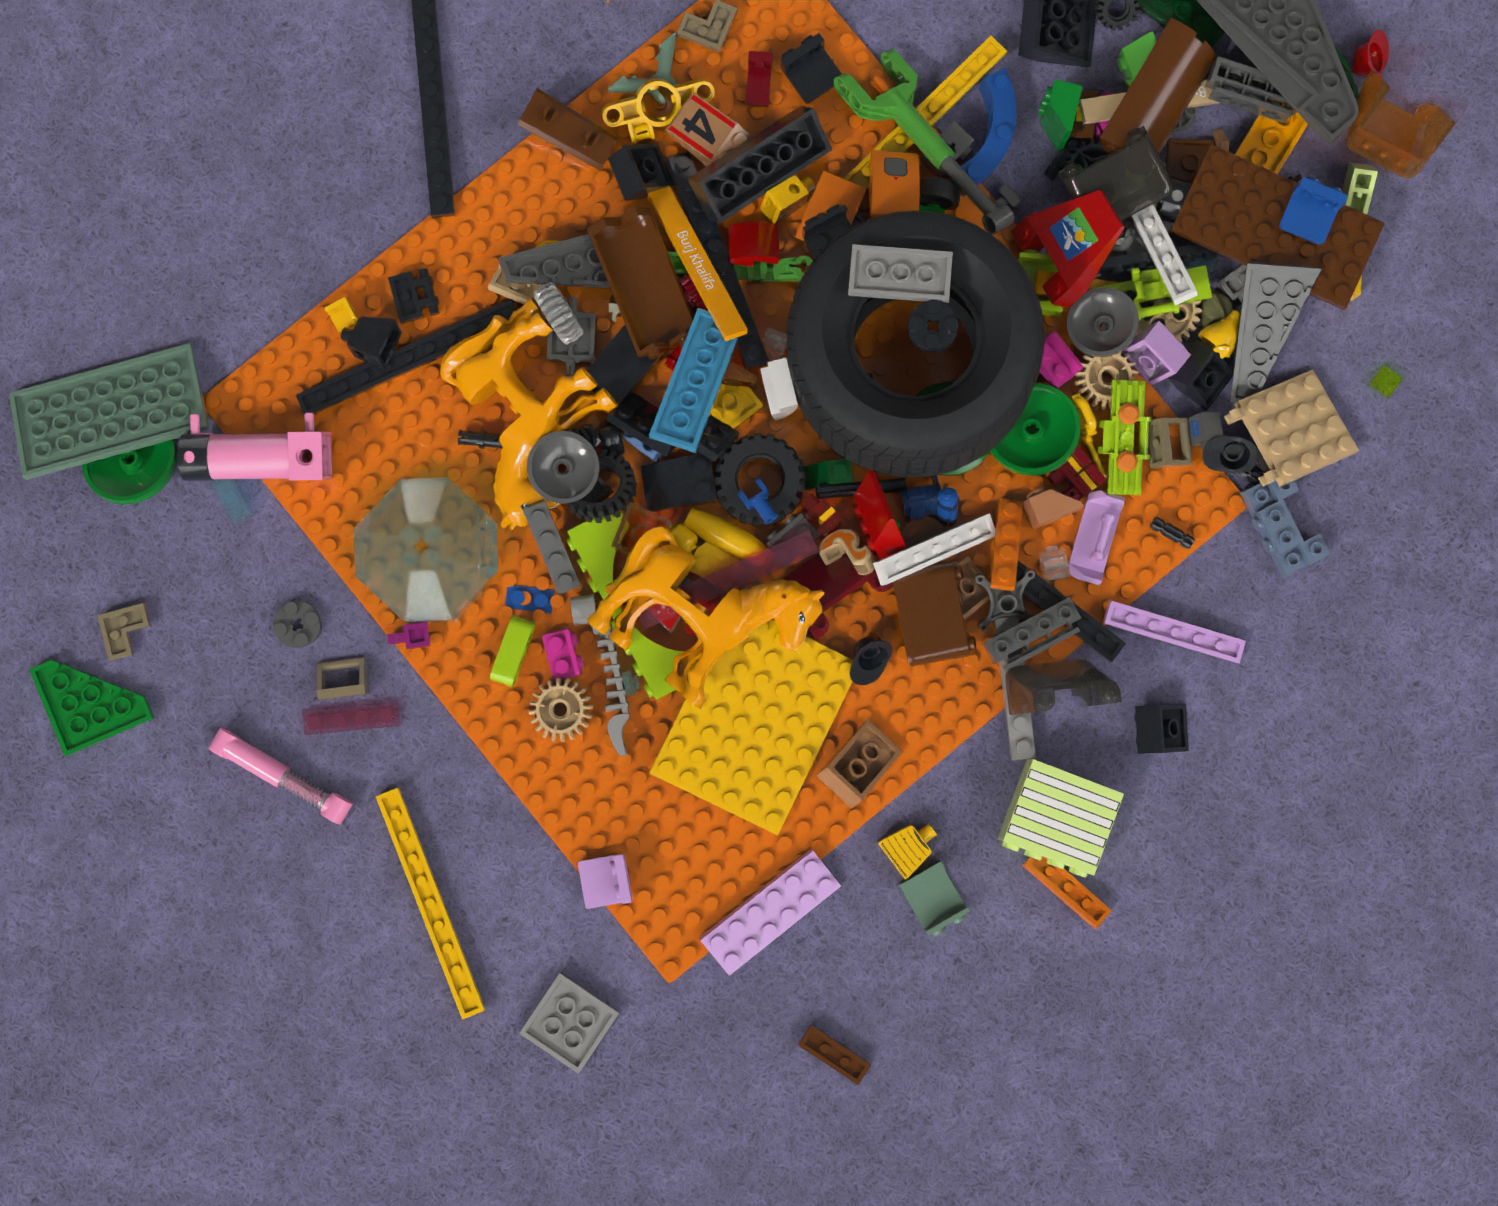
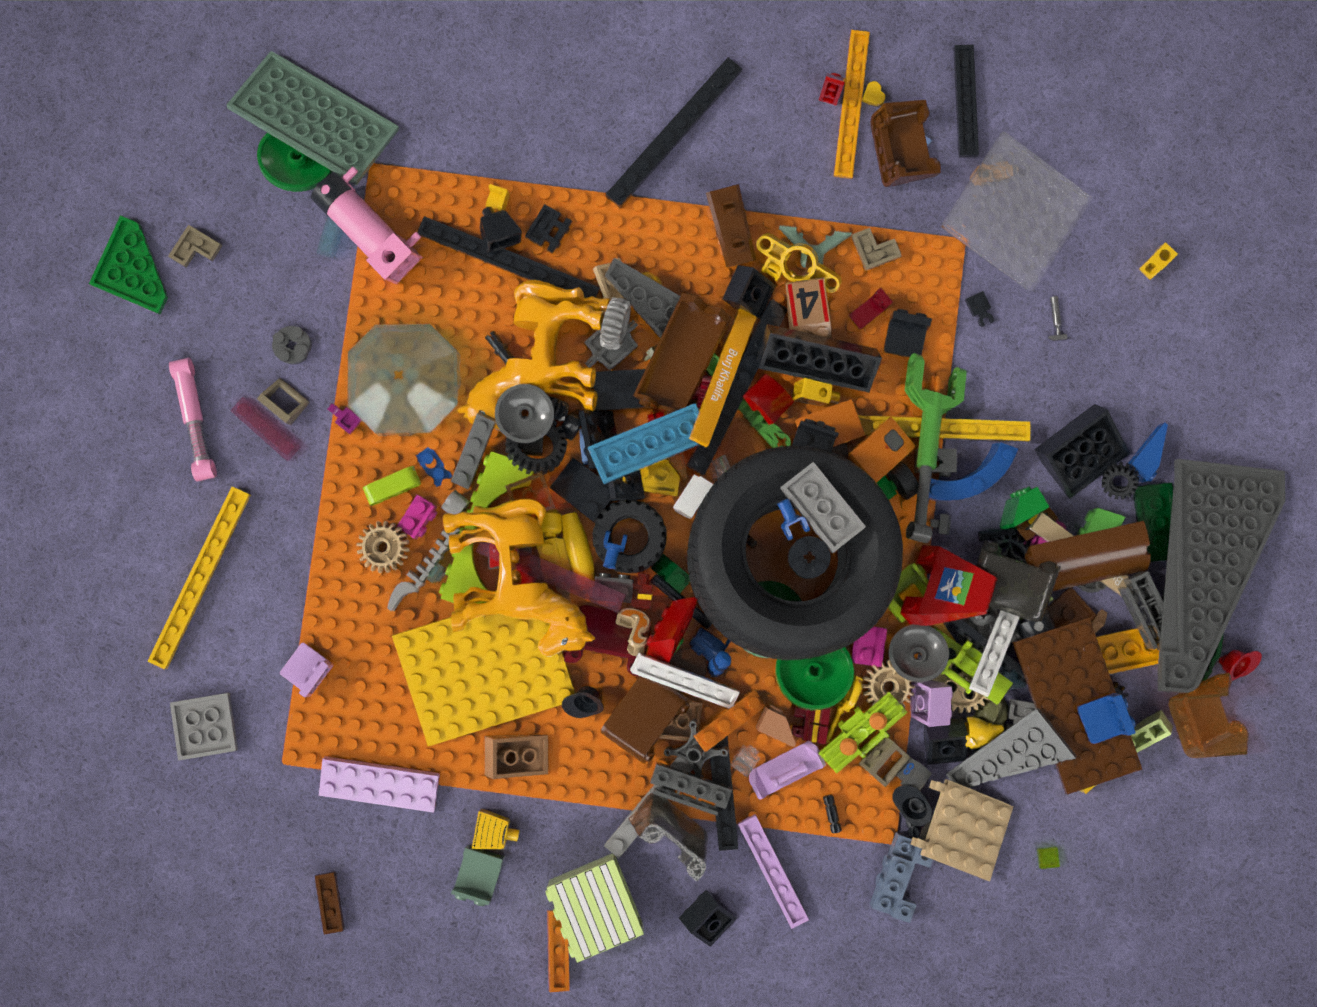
camera: 45 degrees right, 0 degrees up
(883, 310) = (791, 518): none -> blue piece

